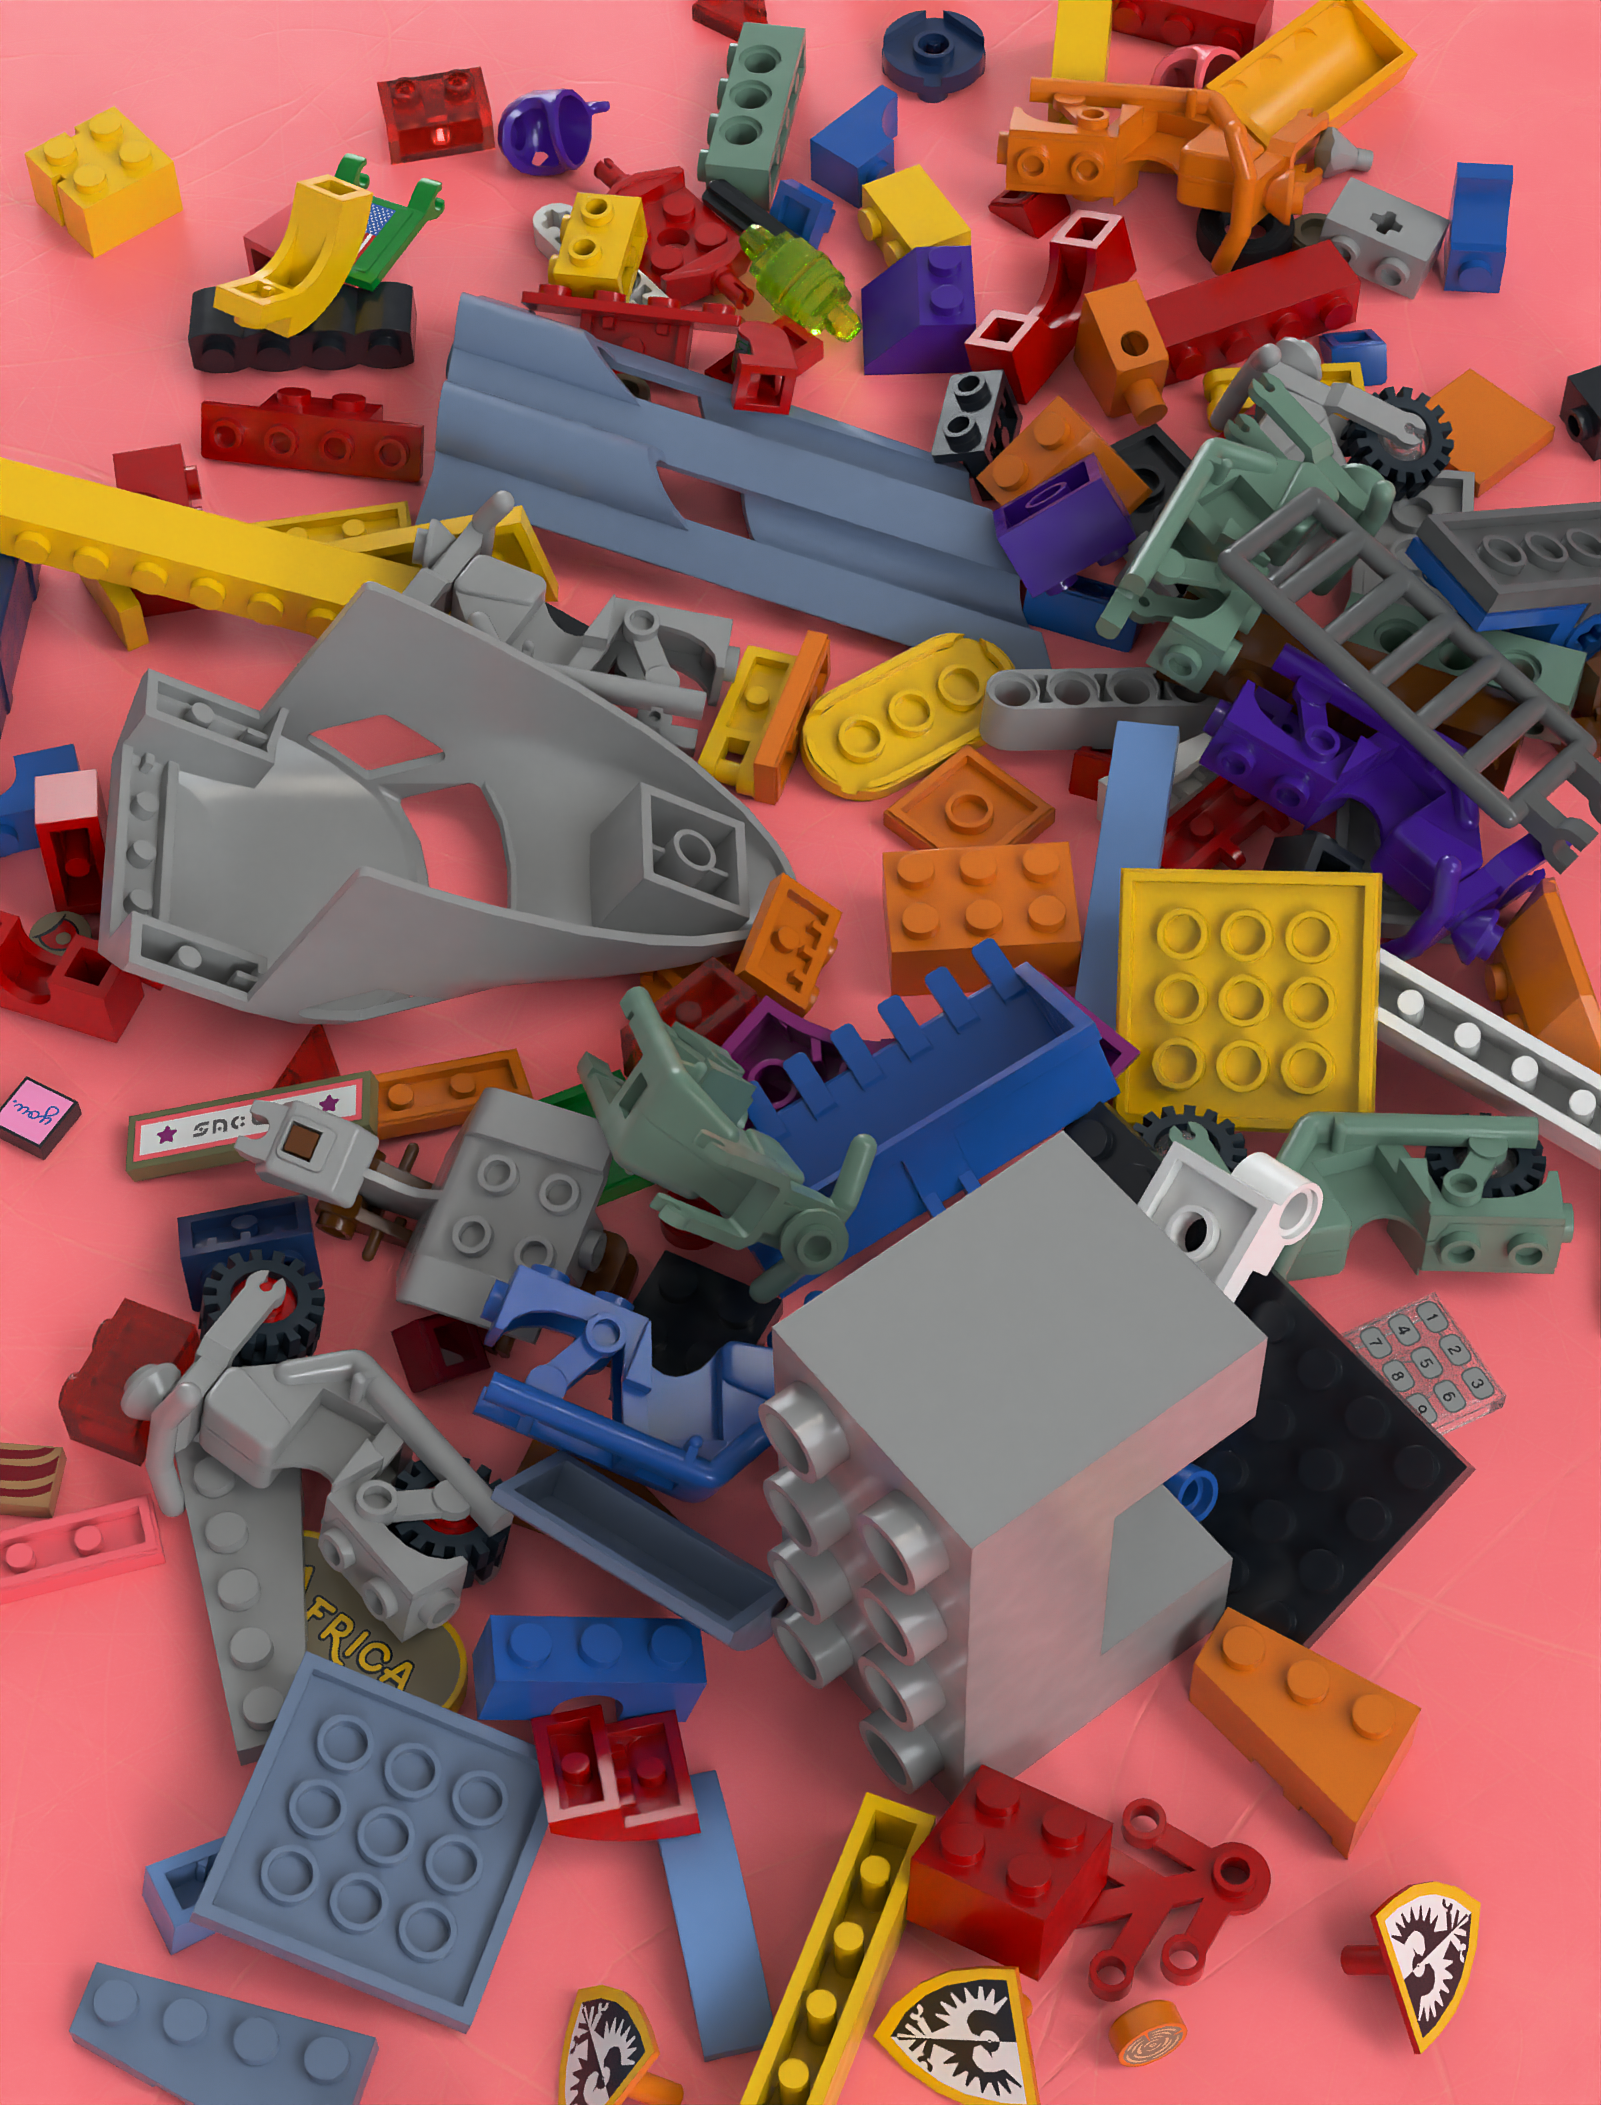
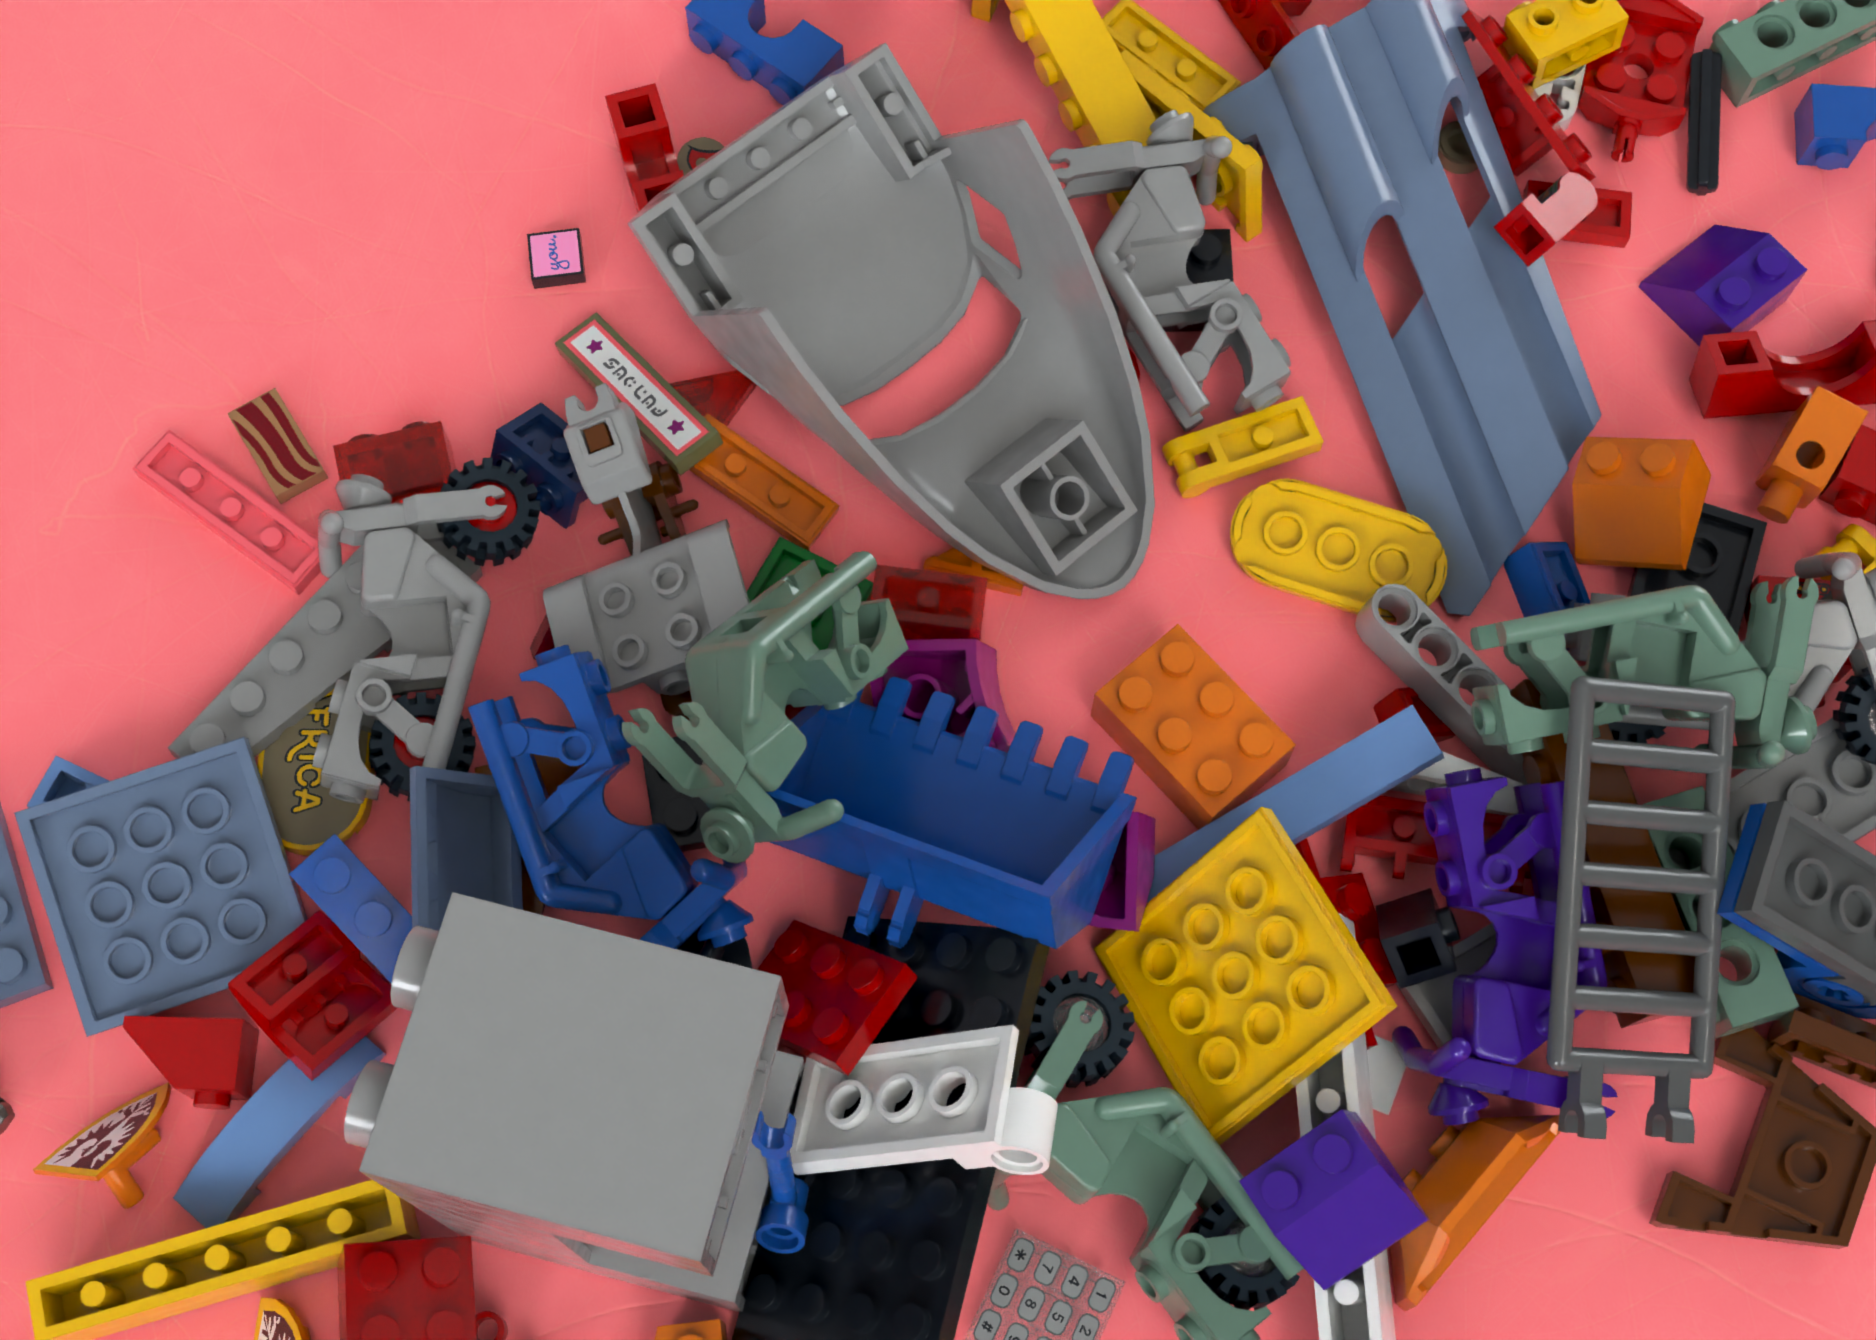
camera: 50 degrees right, 15 degrees up
(72, 838) = (757, 92): red brick -> none
(579, 1933) = (200, 1056): none -> red slope
(783, 734) = (1293, 461): orange tile -> none
(789, 945) = (1049, 620): orange bracket -> none
(800, 283) = (1668, 181): clear neon green piece -> none
(803, 211) = (1743, 132): blue tile -> none
(909, 213) = (1808, 209): yellow brick -> none
(968, 806) = (1290, 653): orange tile -> none
(976, 422) = (1646, 399): black bracket -> none
(1064, 527) = (1580, 533): dark purple brick -> none
(1502, 1042) = (1334, 1199): none -> dark purple slope

